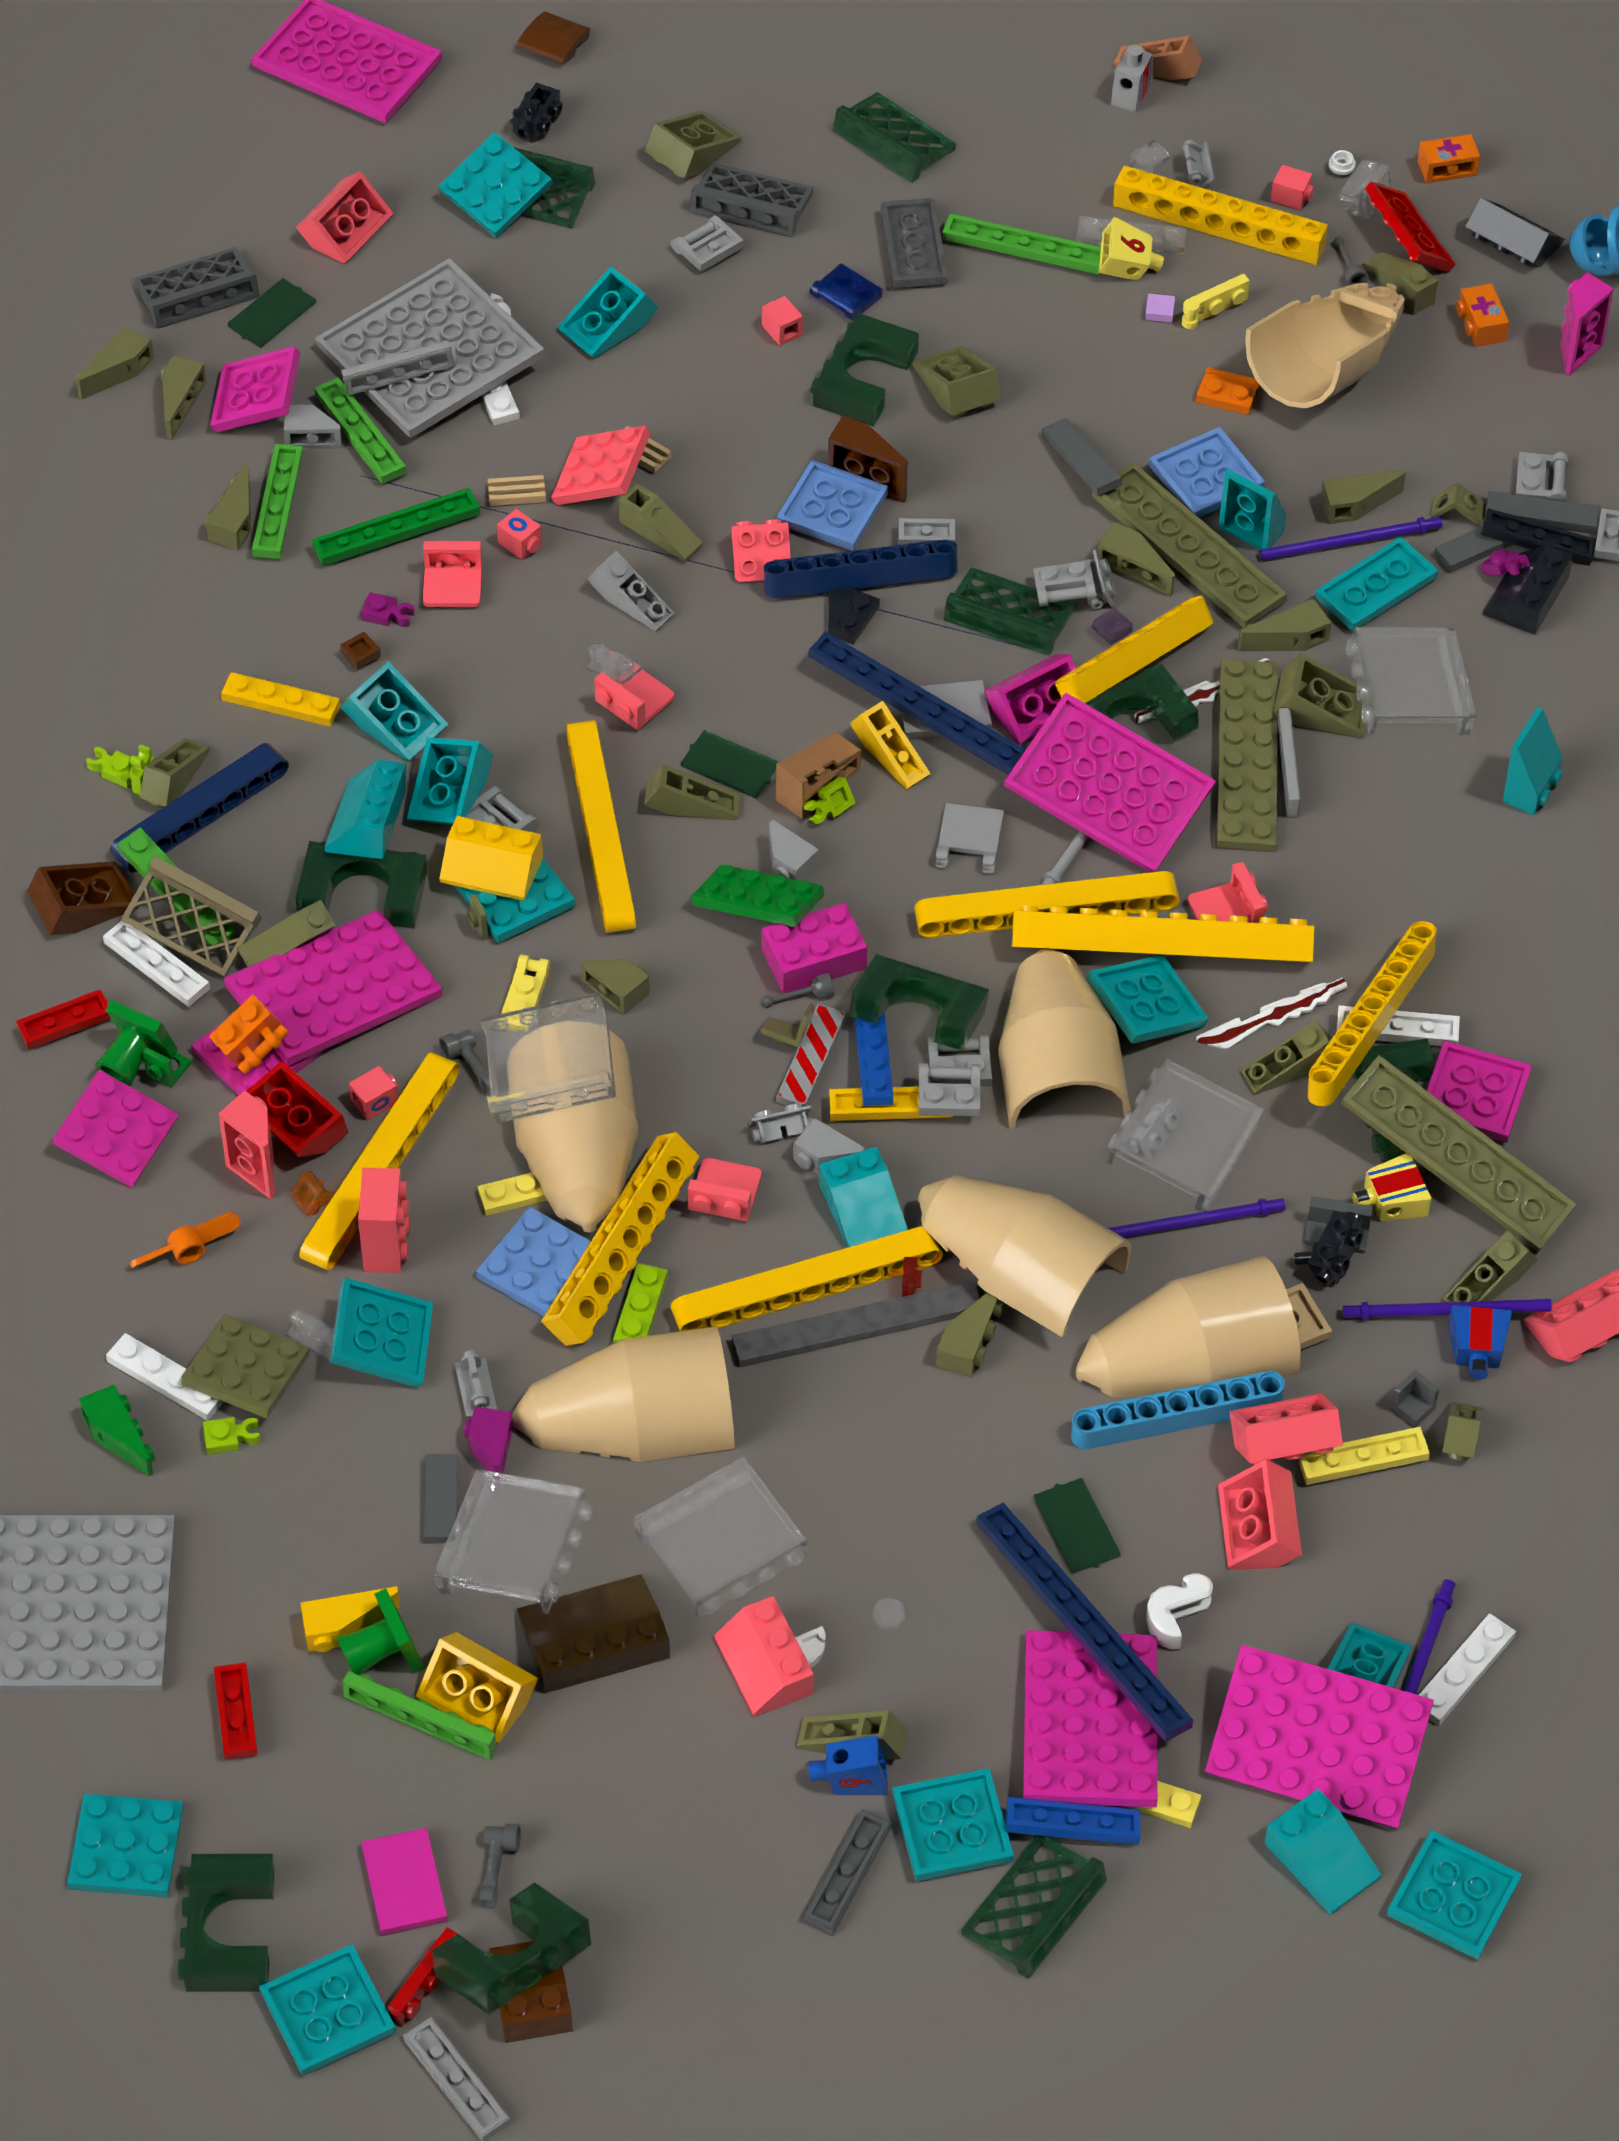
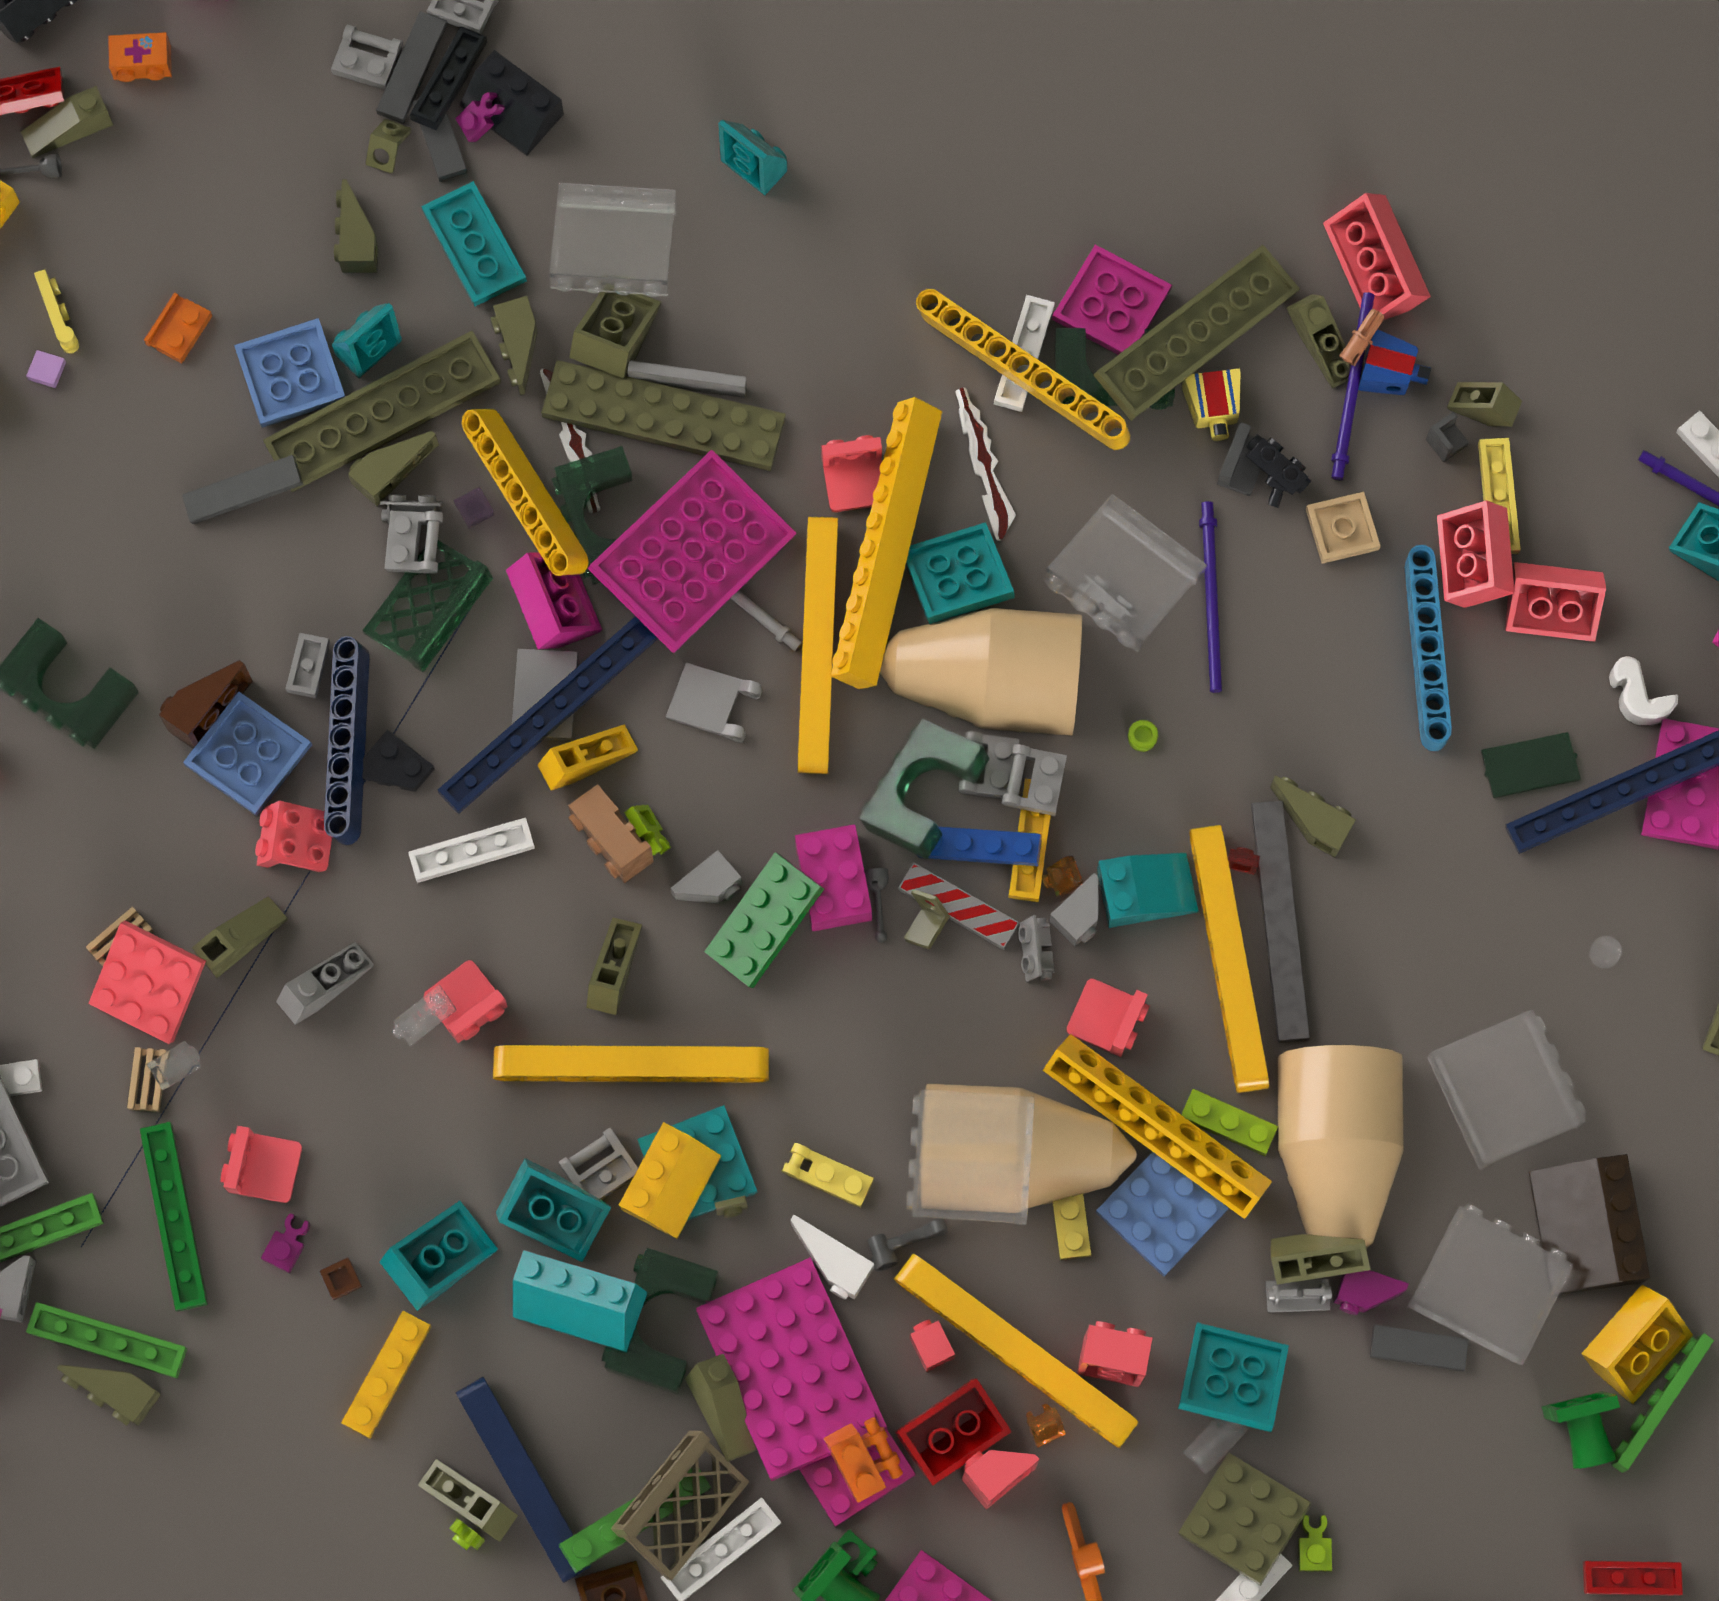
camera: 80 degrees left, 20 degrees up
(113, 768) = (445, 1561): lime plate -> none
(341, 1615) = (1547, 1463): yellow slope -> none
(442, 1003) = (837, 1263): none -> white slope
(509, 1375) = (1316, 1256): none -> olive slope
(519, 534) = (218, 1084): coral brick -> none
(530, 498) = (174, 1065): none -> clear brick
(617, 982) = (838, 1078): olive slope -> none
(729, 764) = (569, 920): clear green piece -> none
(765, 1657) = (1642, 1072): coral slope -> none
(779, 678) = (471, 850): none -> white plate
(813, 1645) = (1628, 1028): white tile -> none
(858, 1128) = (1063, 876): none -> clear orange tile
(959, 380) = (102, 592): olive slope -> none
(1021, 1244) = (1242, 744): tan windscreen -> none
(1024, 1179) = (1142, 735): none -> lime tile
(1197, 1333) = (1347, 611): tan windscreen -> none
(1287, 1060) = (1048, 458): olive slope -> none
(1323, 344) = (163, 208): tan windscreen -> none
(1420, 525) = (405, 185): dark purple bar -> none
(1496, 1296) = (1362, 337): none -> nougat axle

